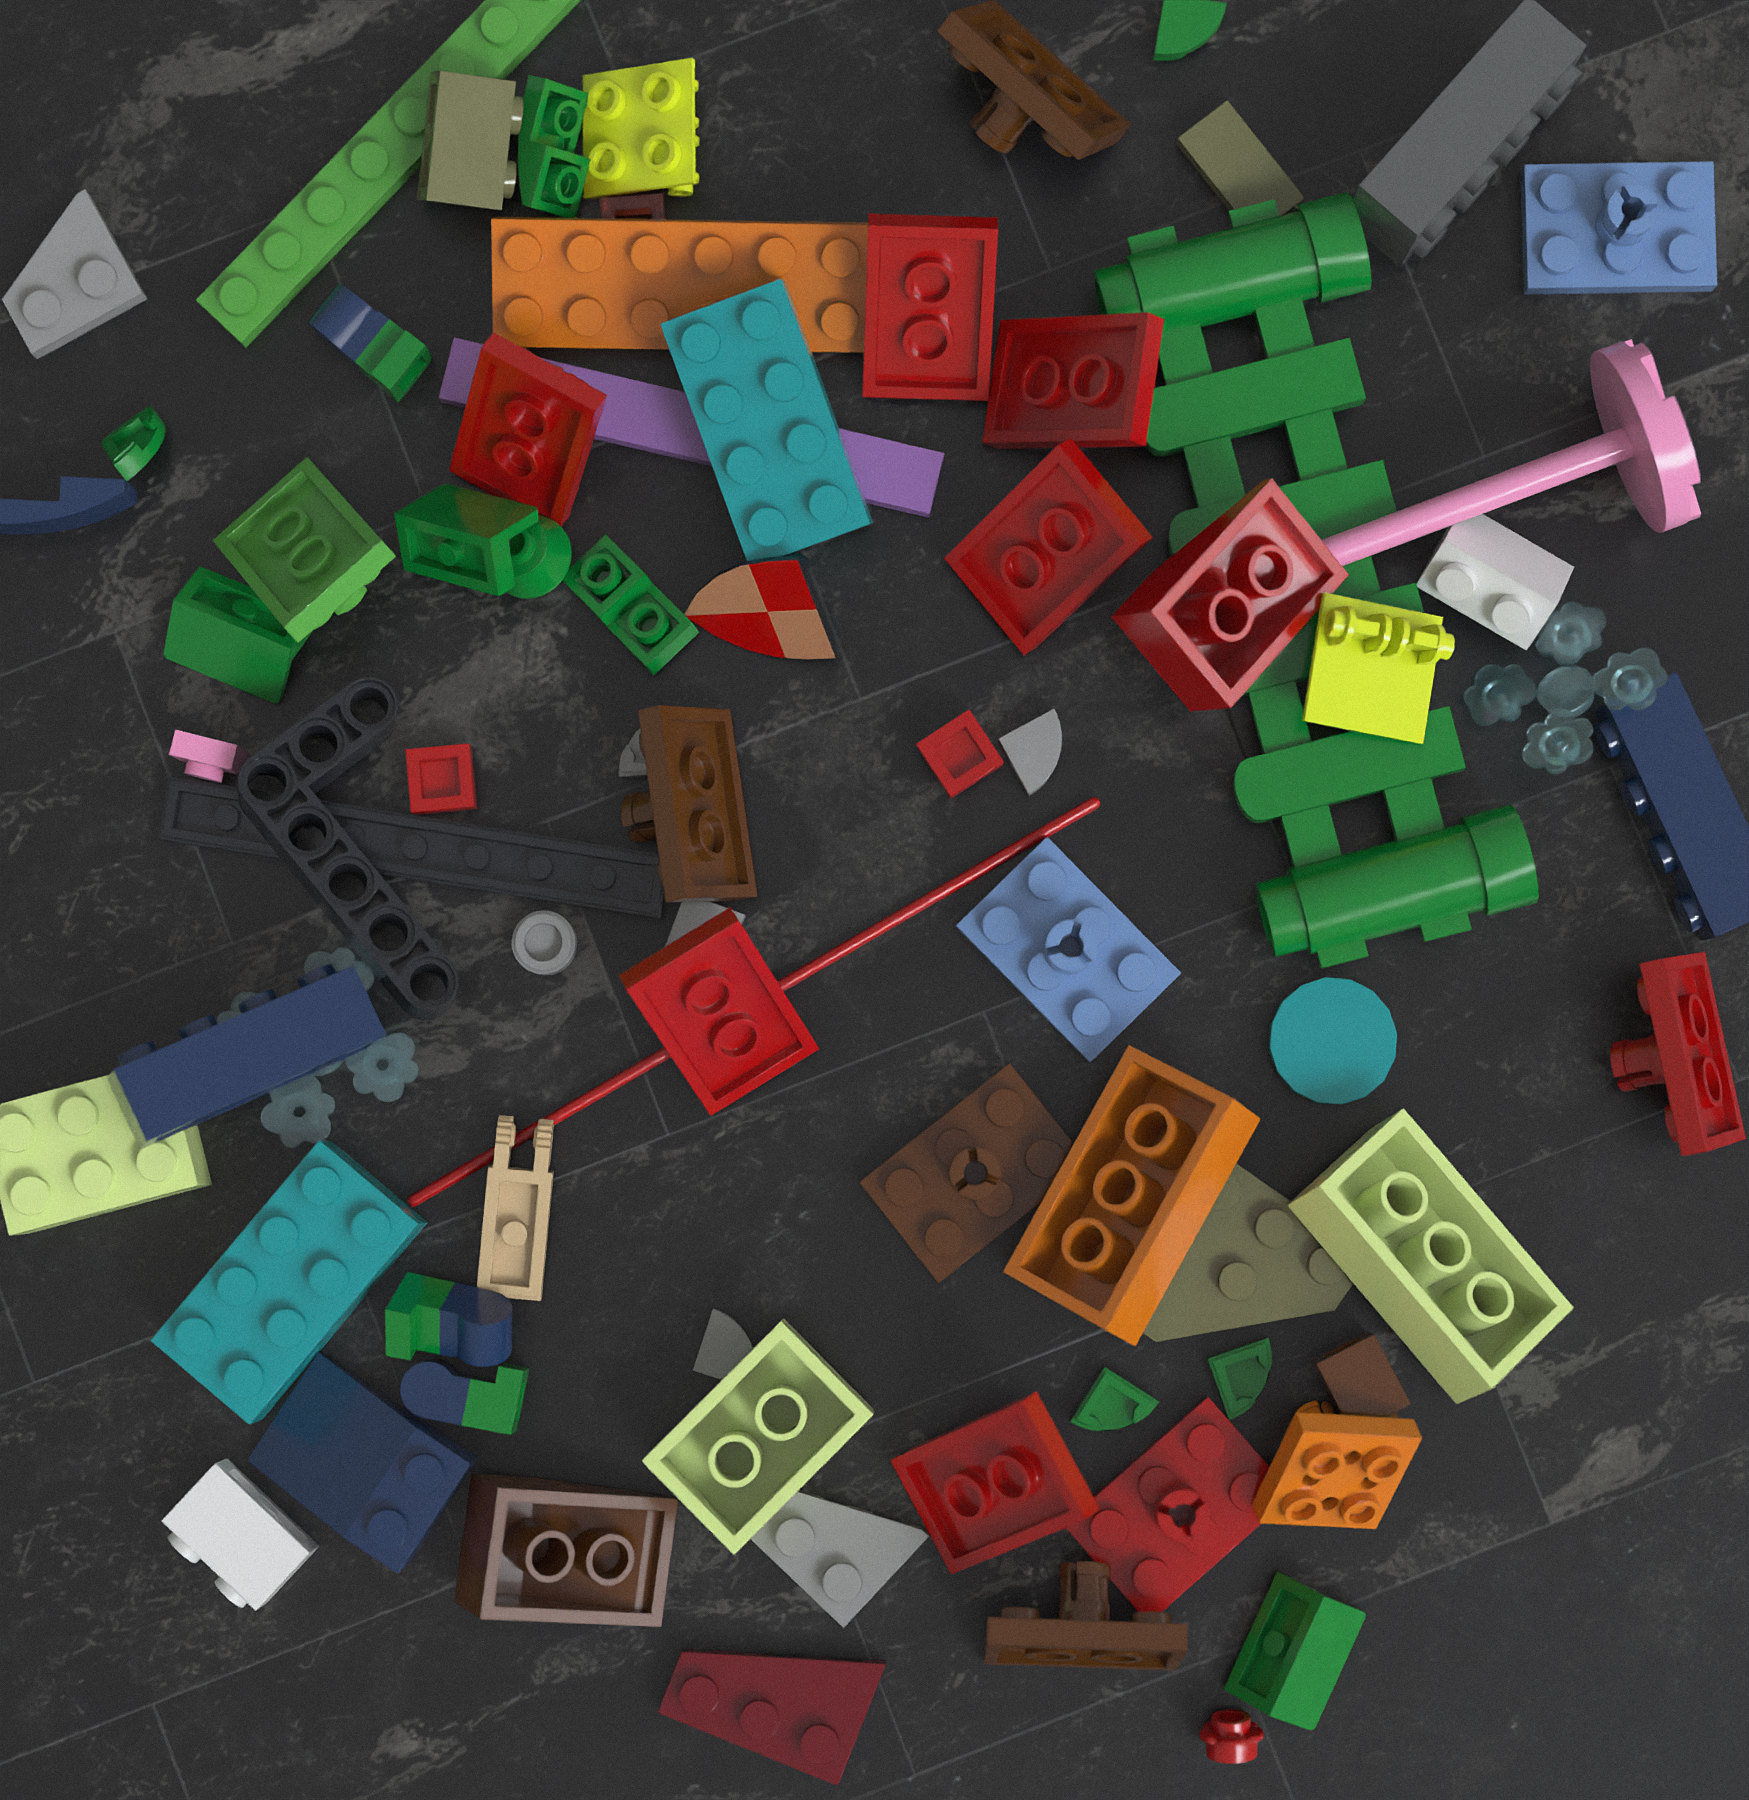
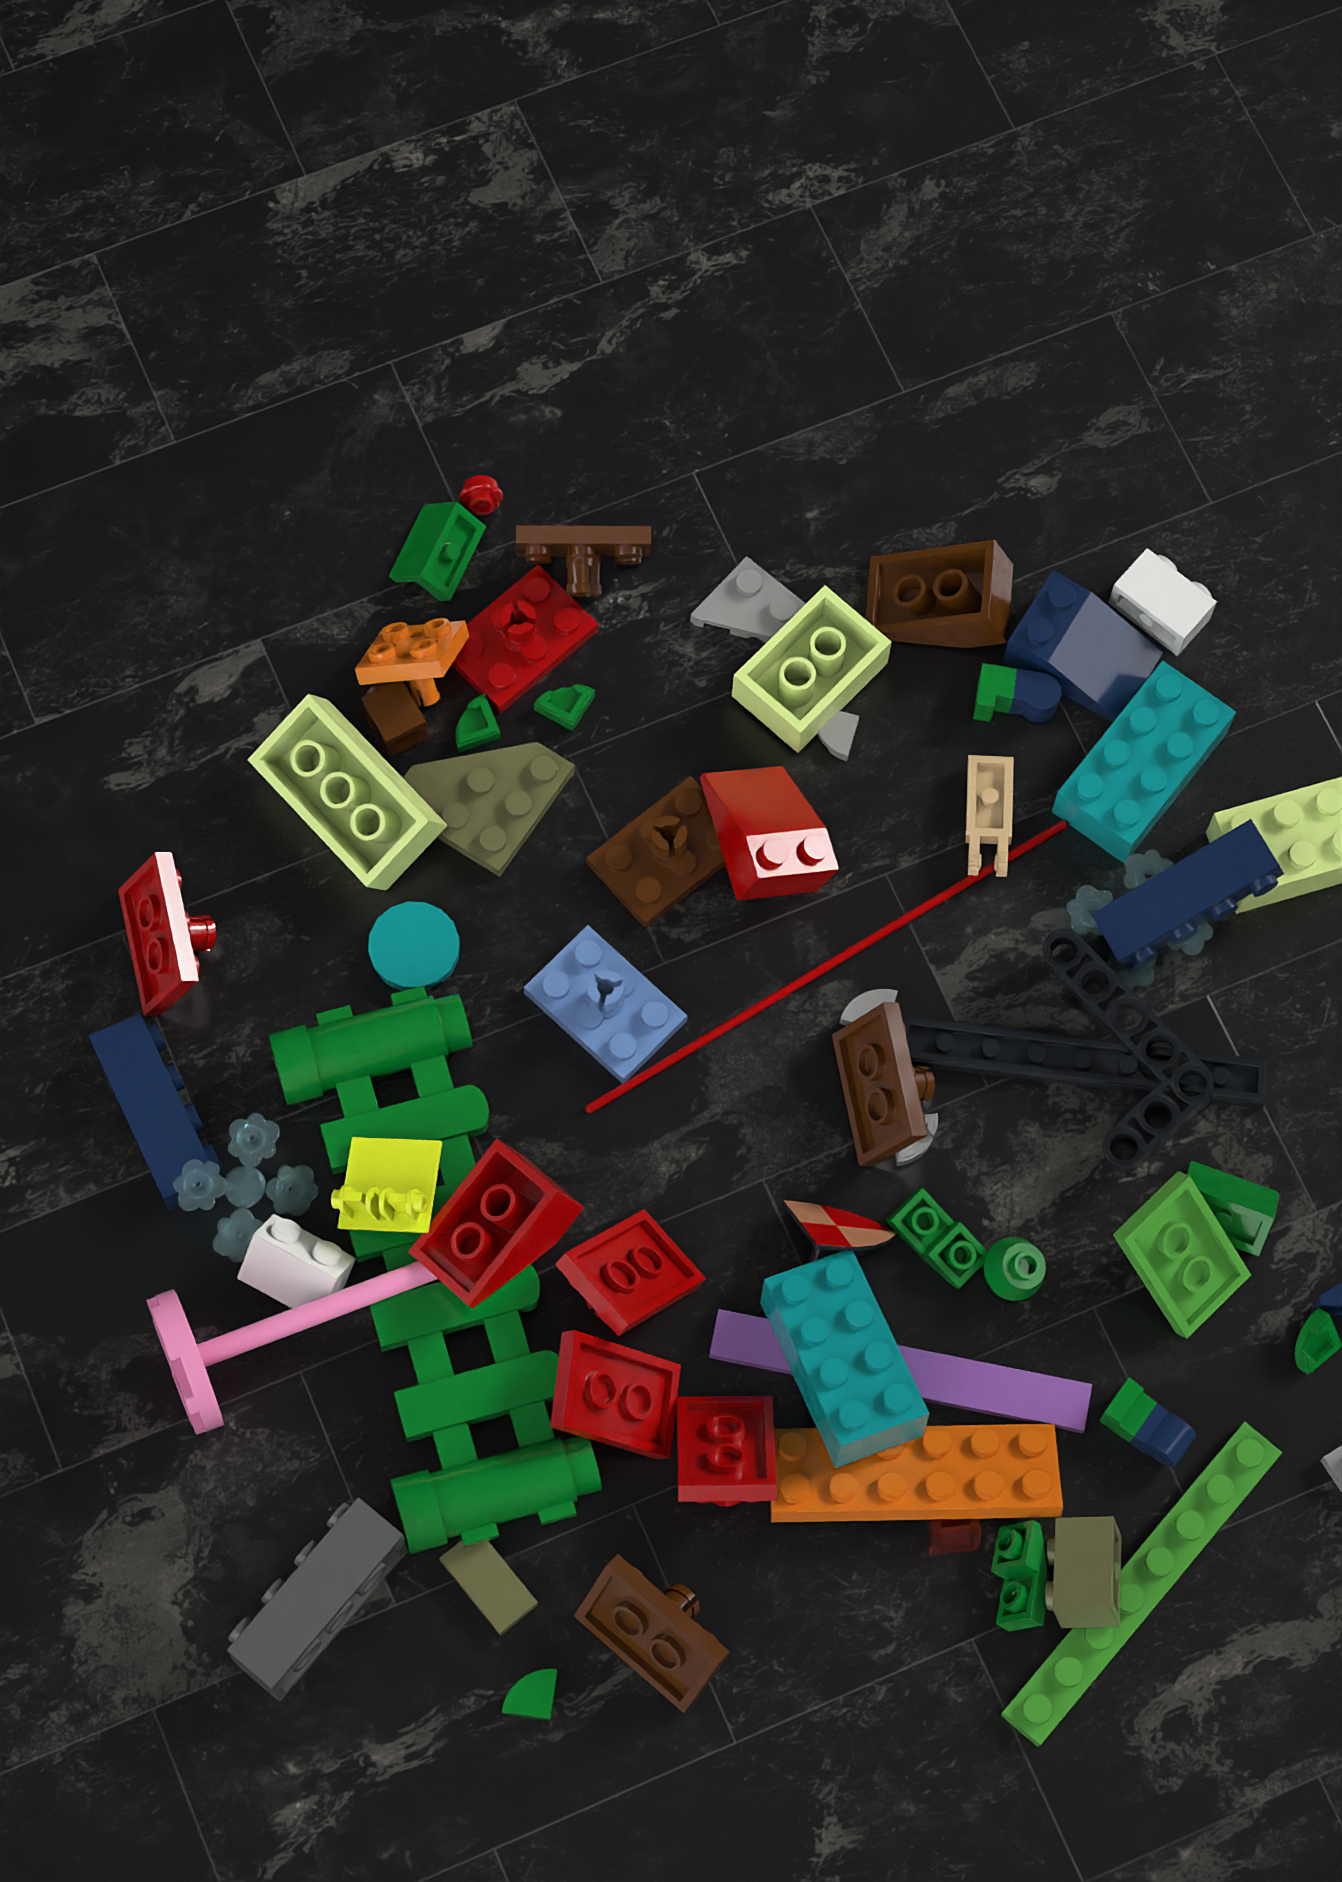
camera: 170 degrees right, 15 degrees down
(206, 756) = (1238, 1116): bright pink plate -> none
(441, 779) = (1067, 1106): red plate -> none
(448, 1321) = (1031, 737): leg -> none
(462, 537) = (1063, 1276): green panel -> none
(526, 429) = (1020, 1347): red plate -> none
(544, 942) = (983, 998): light grey tile -> none
(641, 130) = (953, 1595): neon yellow hinge -> none
(719, 1011) = (855, 940): red plate -> none
(776, 1706) = (785, 507): dark red wing -> none
(834, 1190) = (768, 833): none -> red slope
(959, 754) = (689, 1135): red plate -> none
(994, 1483) = (647, 637): red plate -> none
(1034, 750) = (634, 1142): light grey tile -> none
(1132, 1194) = (557, 826): orange brick -> none
(1618, 227) = (195, 1546): medium blue plate -> none

